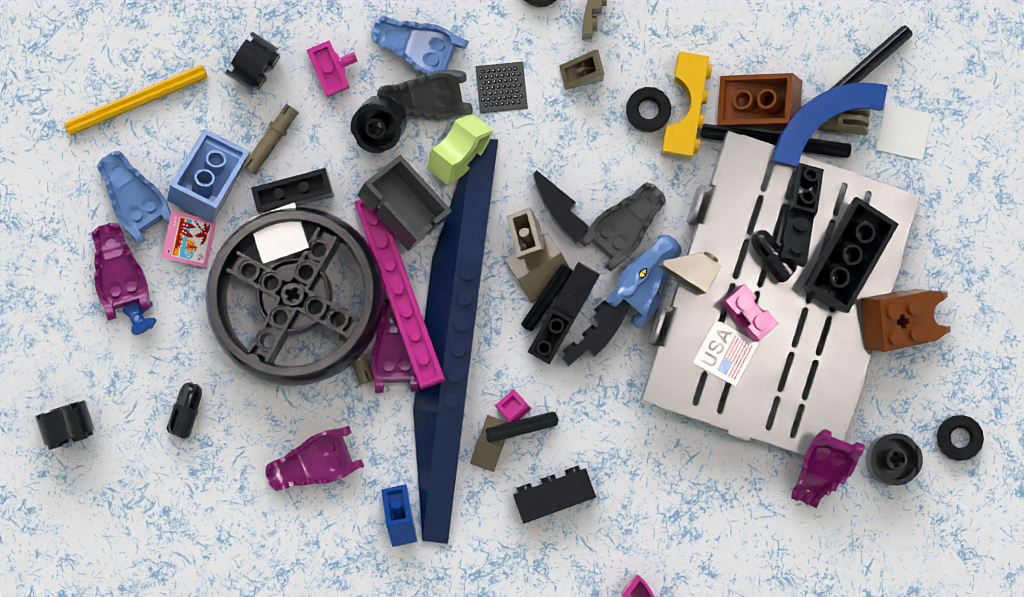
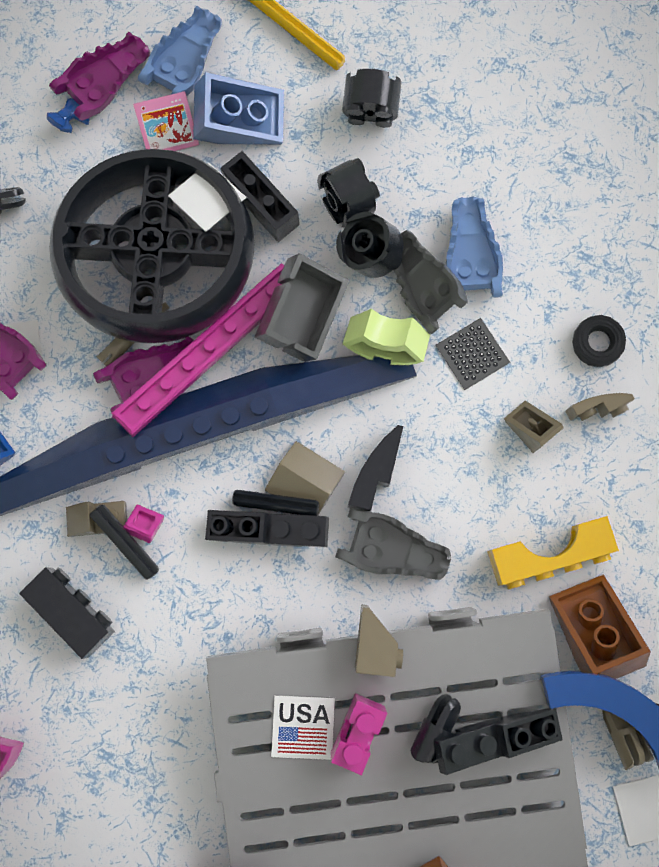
camera: 65 degrees right, 5 degrees down
(271, 138) = (310, 155): dark tan pin -> none
(325, 120) = (348, 191): none -> black brick
(330, 67) = (405, 176): dark pink plate -> none
(526, 233) = (330, 447): dark tan slope -> none
(597, 337) = (285, 580): black slope -> none
(644, 281) = (337, 598): medium blue animal -> none
(654, 95) = (544, 507): black tyre -> none
(812, 146) = (581, 714): black axle -> none
(850, 256) = (480, 821): black brick -> none

